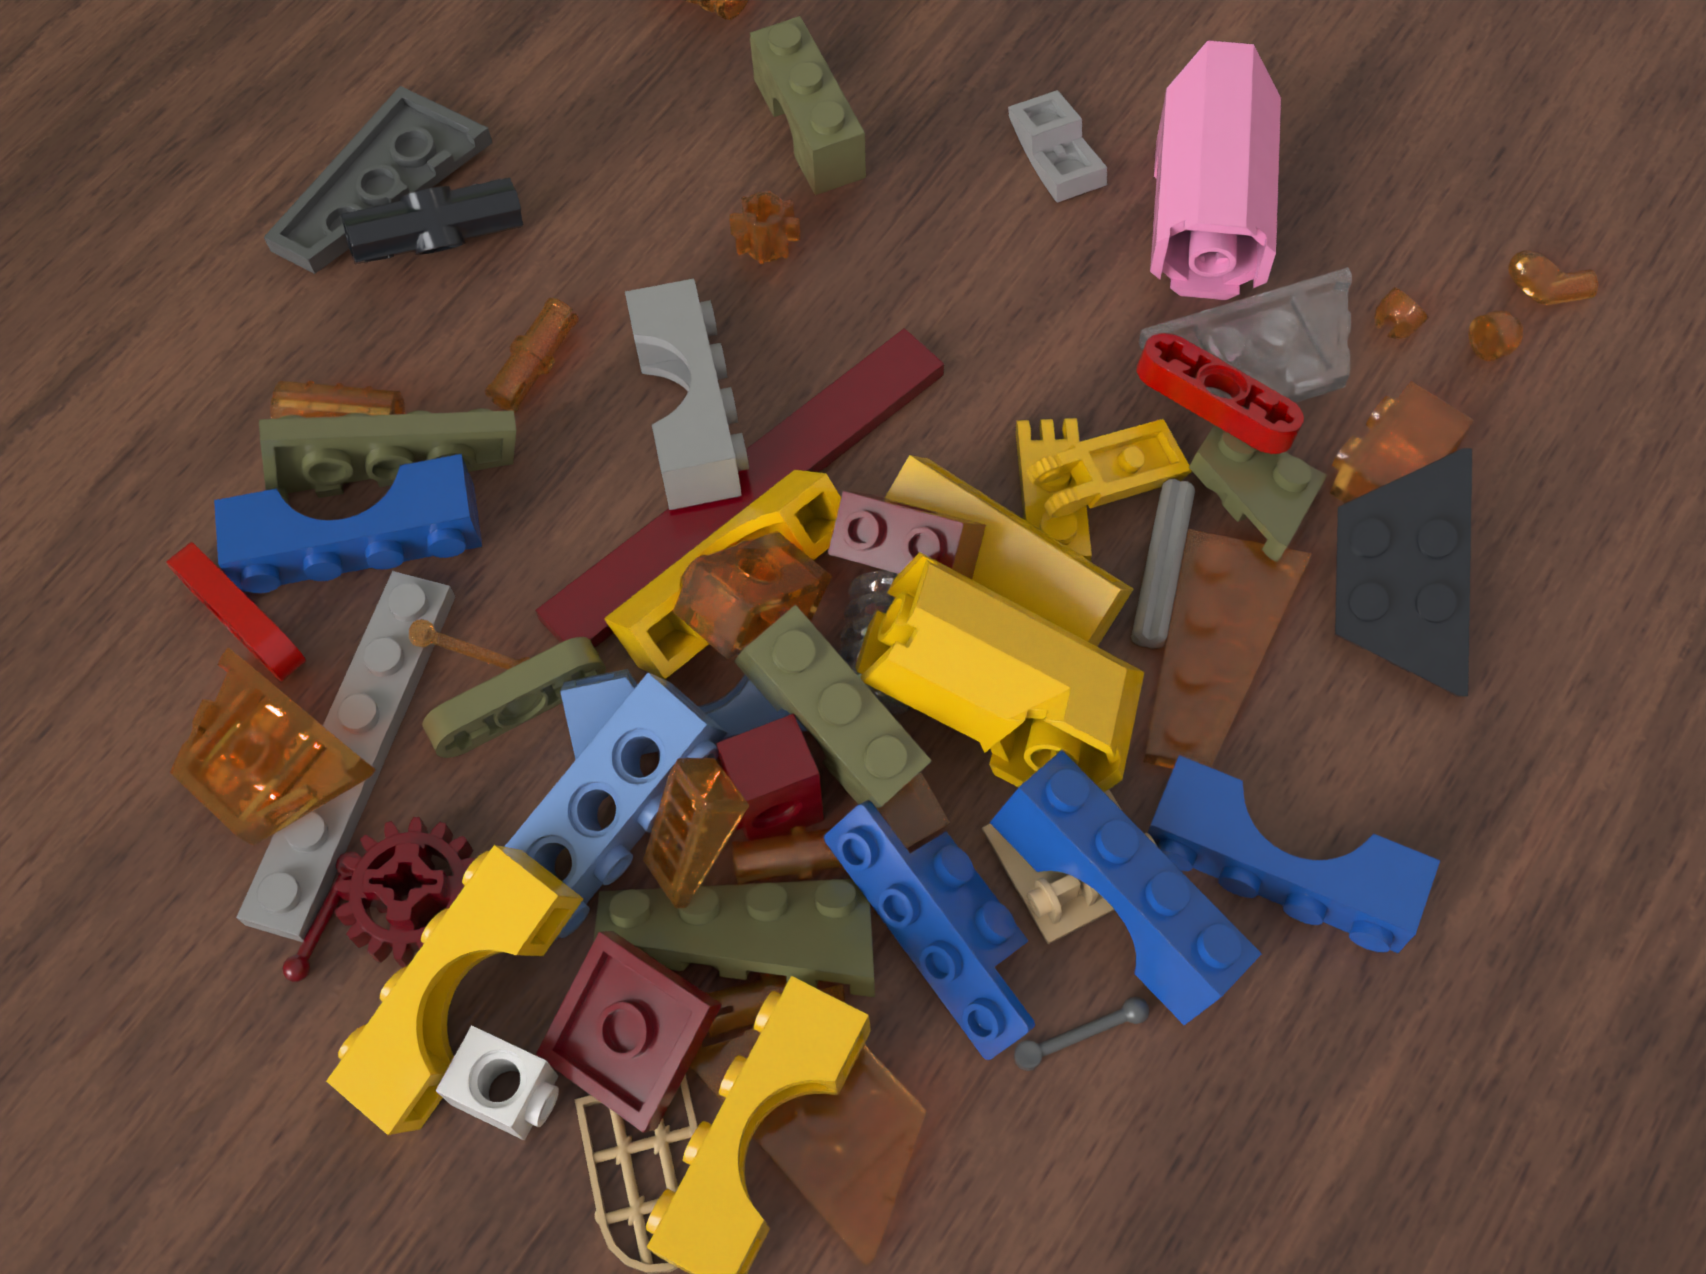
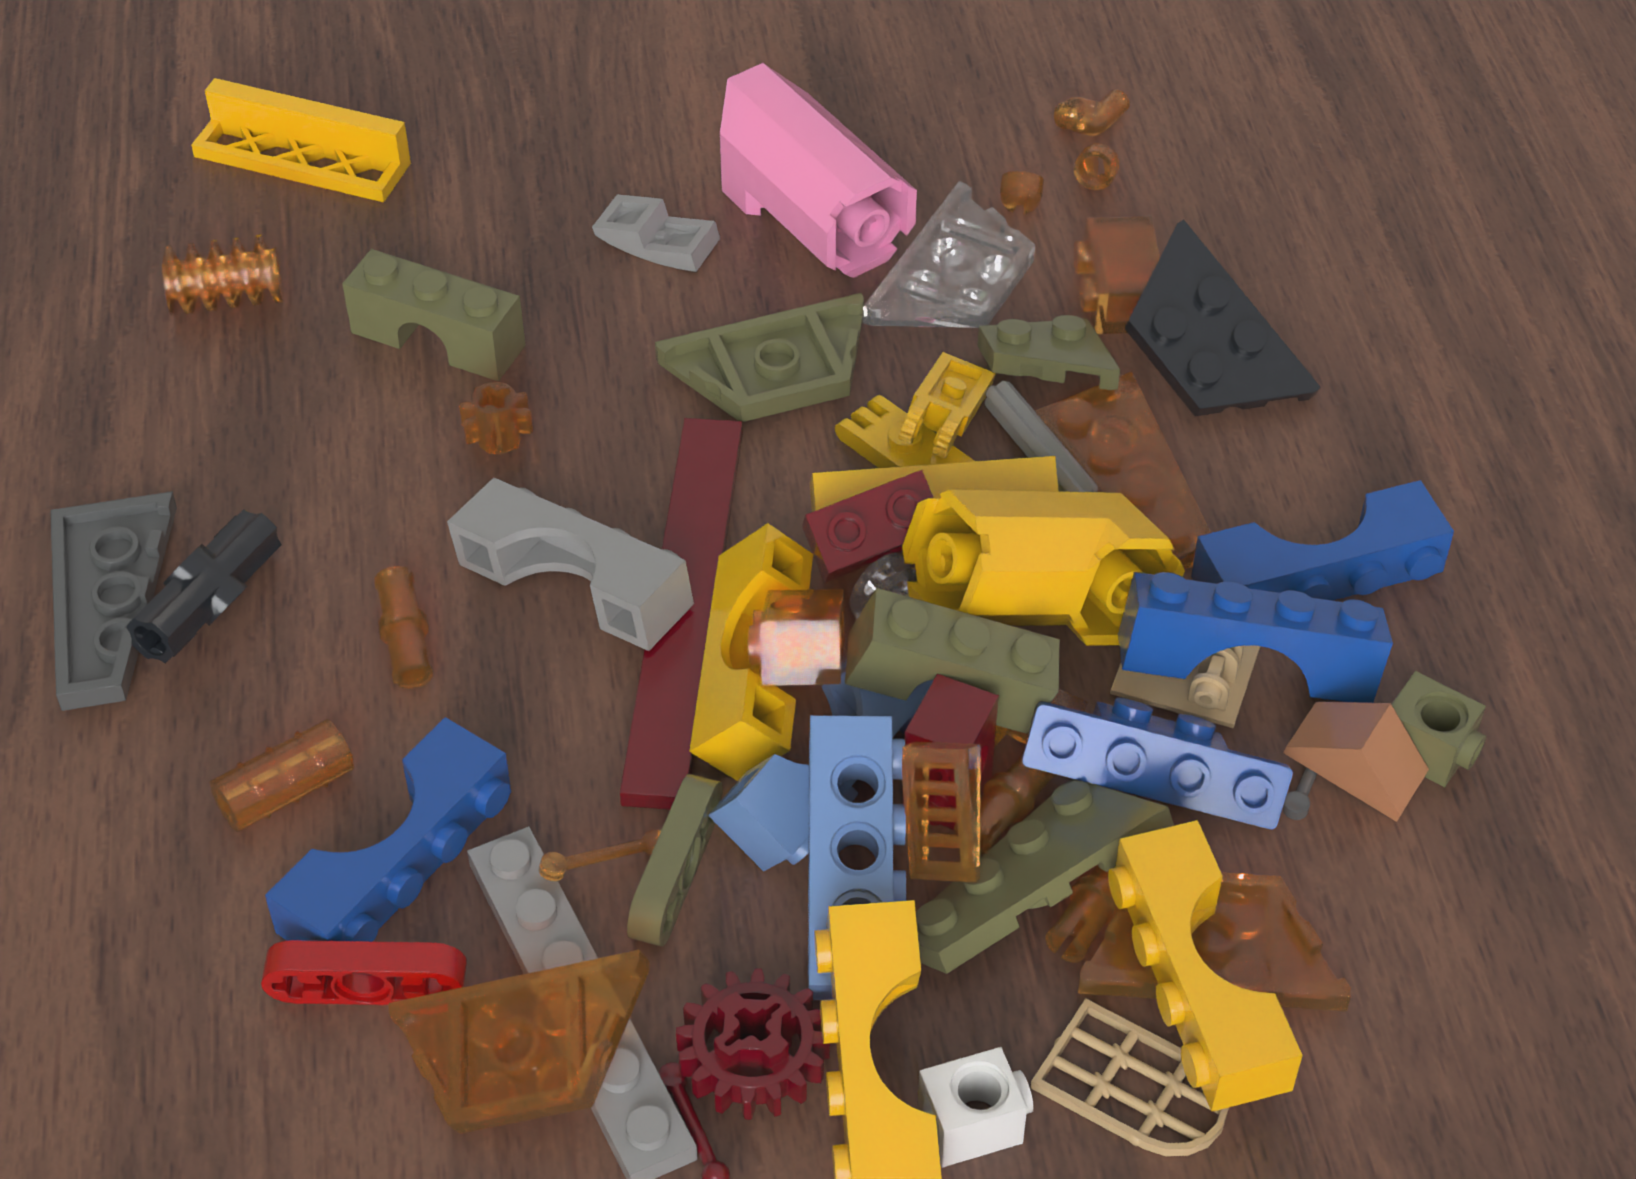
camera: 45 degrees left, 15 degrees down
(359, 446) = (356, 769): olive wing -> none
(628, 1030) = (1033, 983): dark red plate -> none
(1030, 327) = (772, 359): none -> olive wing
(1116, 1062) = (1361, 752): none -> nougat slope
(1217, 1066) = (1441, 726): none -> olive brick
(1266, 424) = (969, 305): red beam -> none

